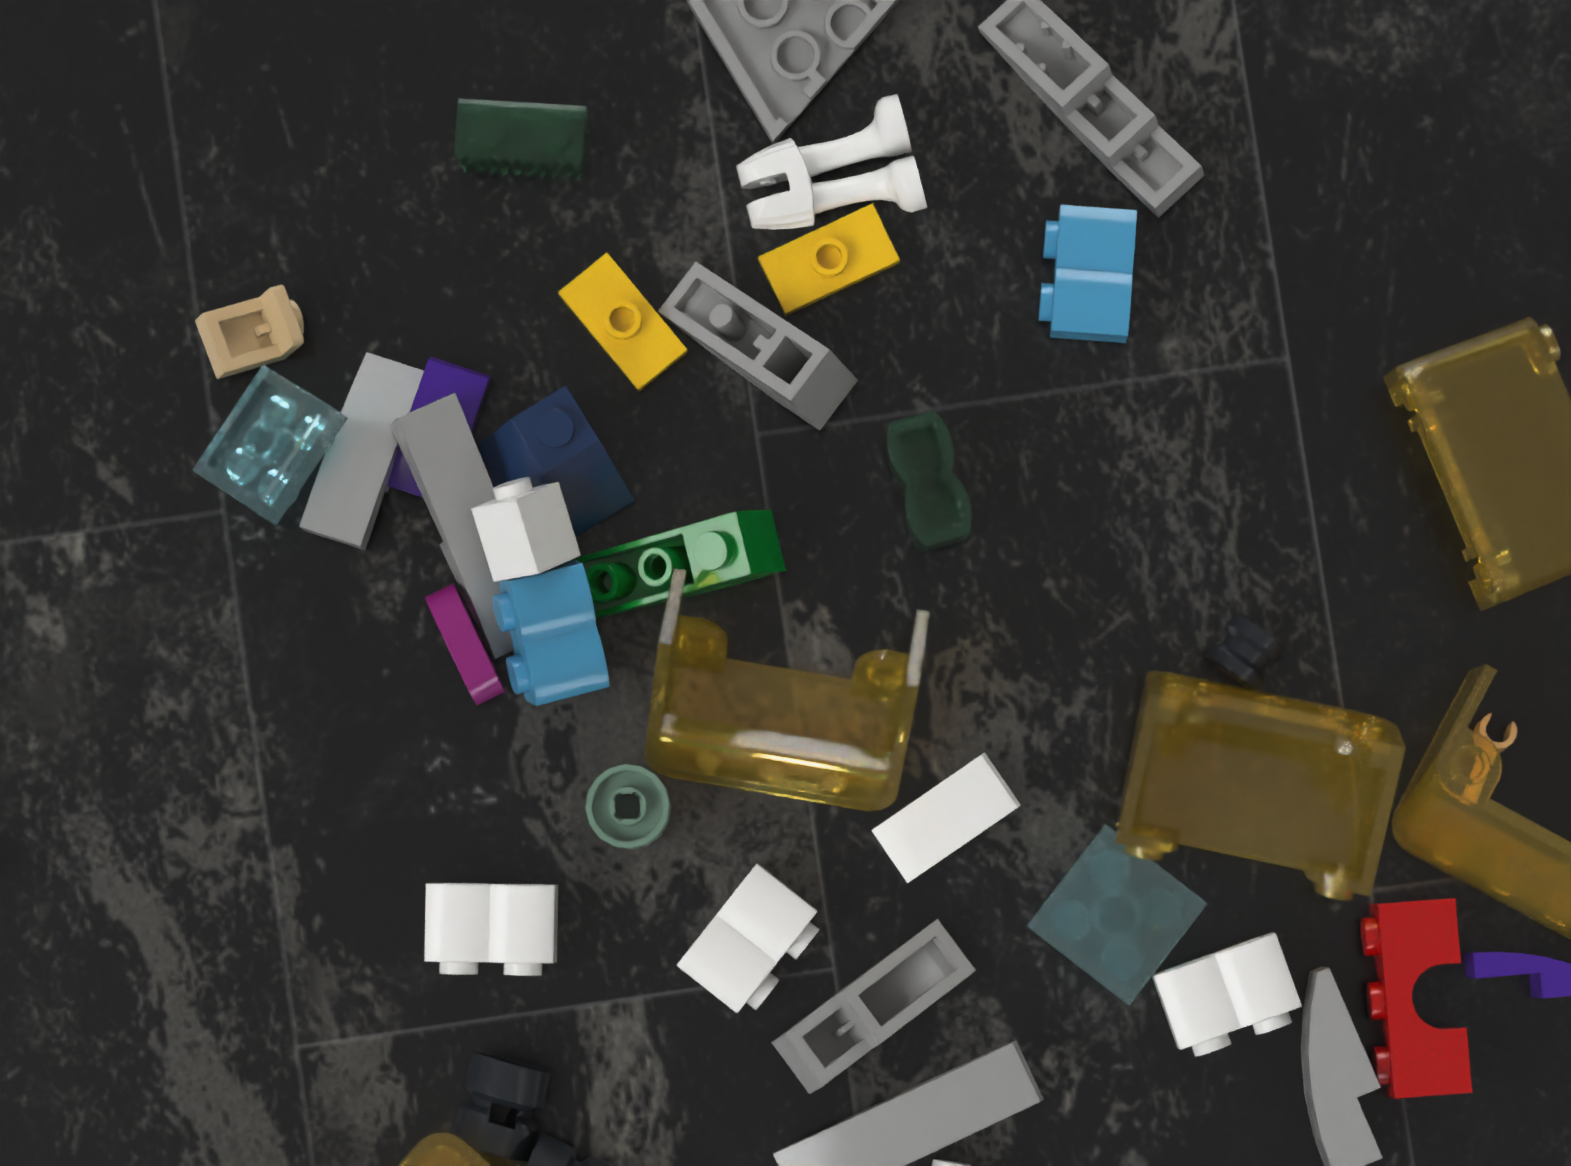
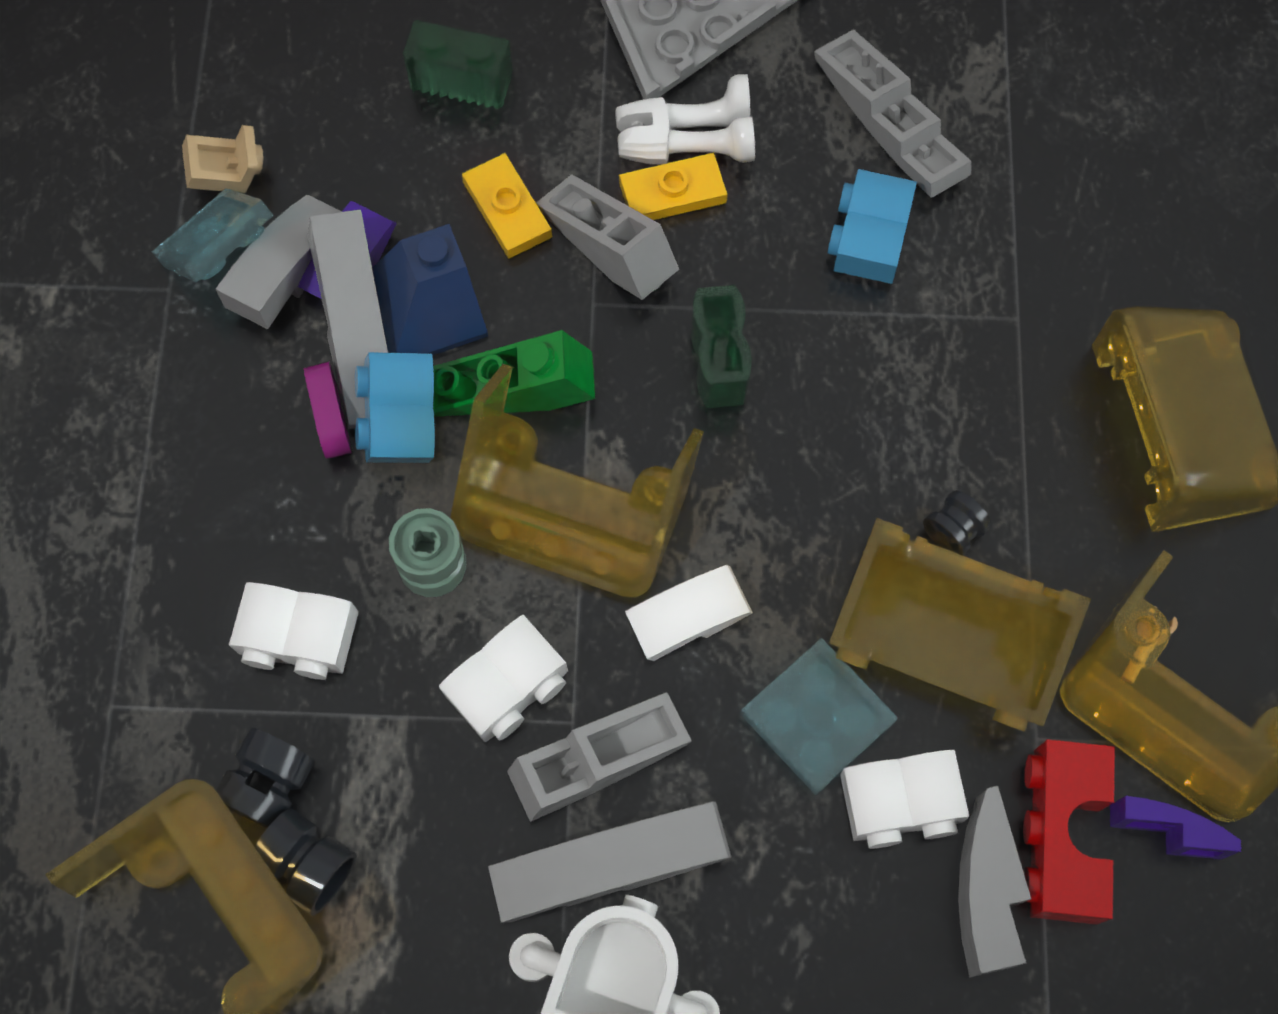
camera: 10 degrees right, 15 degrees down
(525, 529) = (392, 318): white brick -> none

